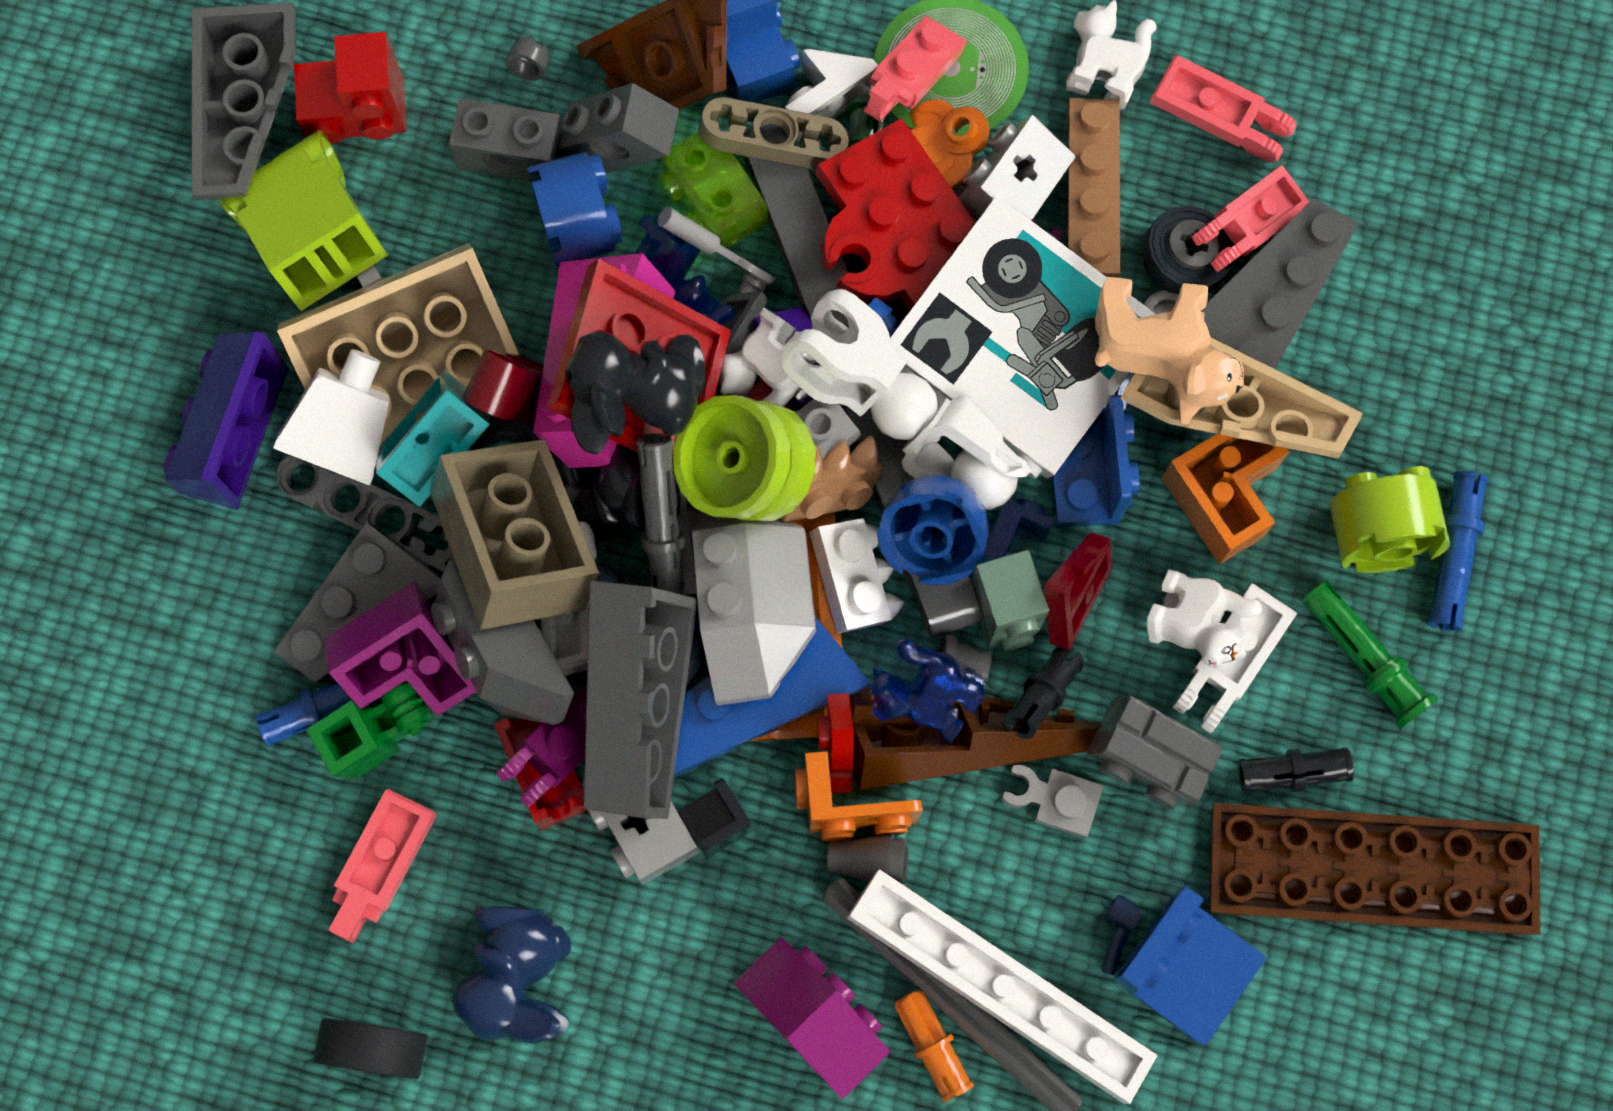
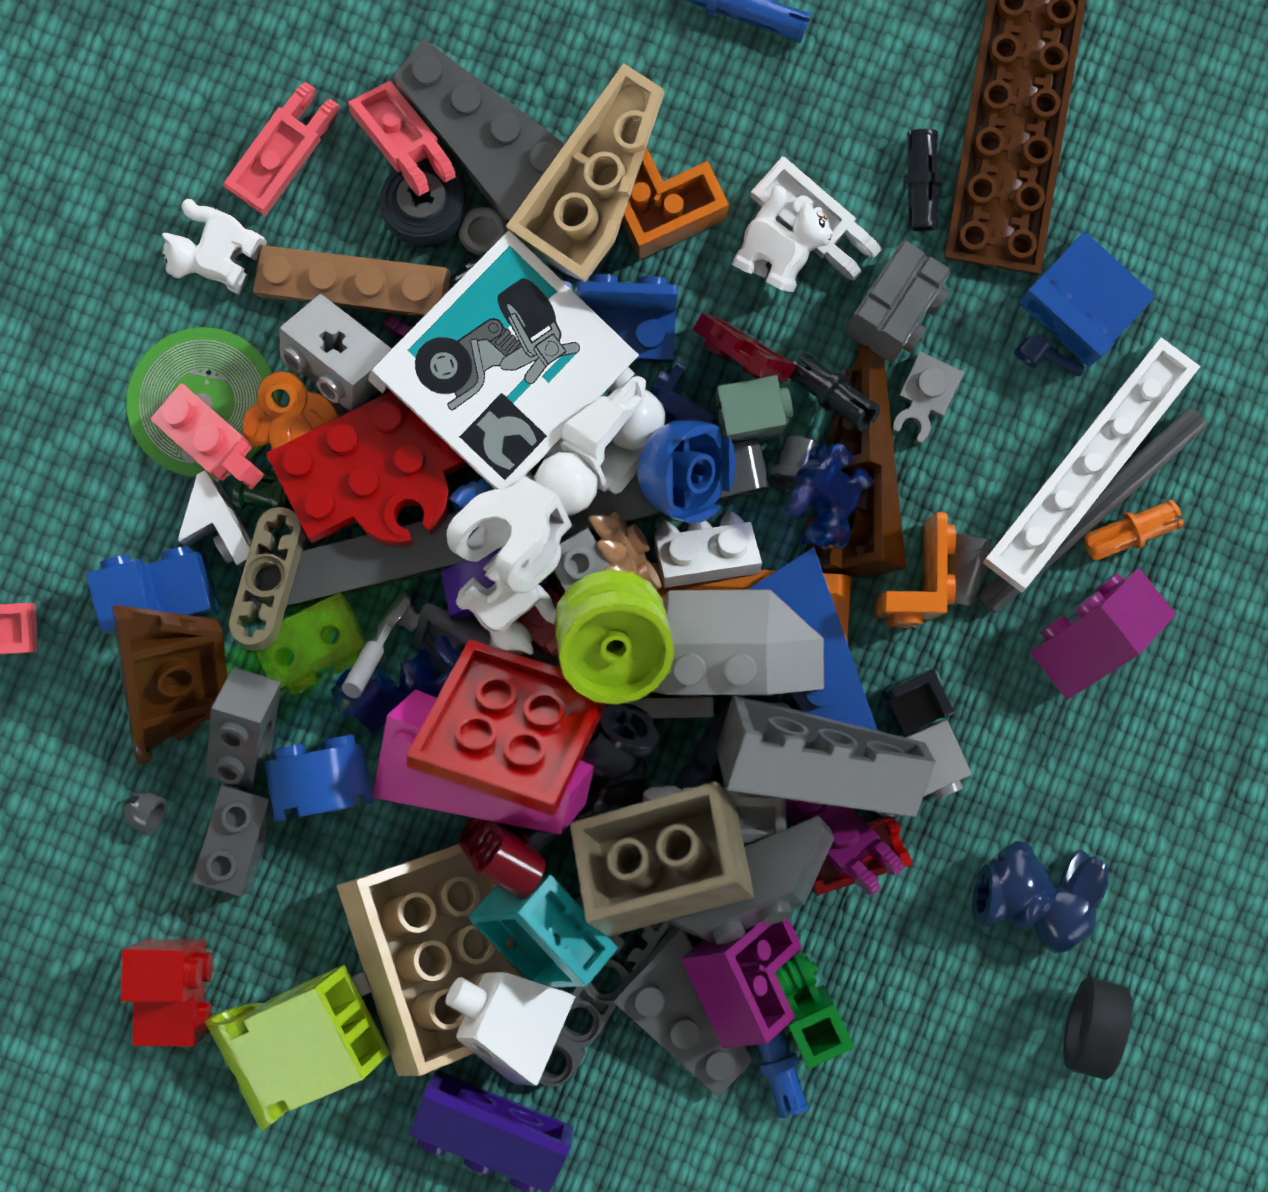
camera: 85 degrees left, 10 degrees up
(236, 86) = (149, 1102): dark grey wedge -> none
(379, 862) = (924, 1010): coral hinge -> none
(655, 385) = (540, 713): black animal -> none
(662, 533) = (668, 722): dark grey pin -> none
(837, 735) = (861, 581): red plate -> none
(1167, 346) = (546, 230): light nougat animal -> none
(1384, 673) = (843, 88): green pin -> none
(1388, 520) = (711, 59): lime brick -> none

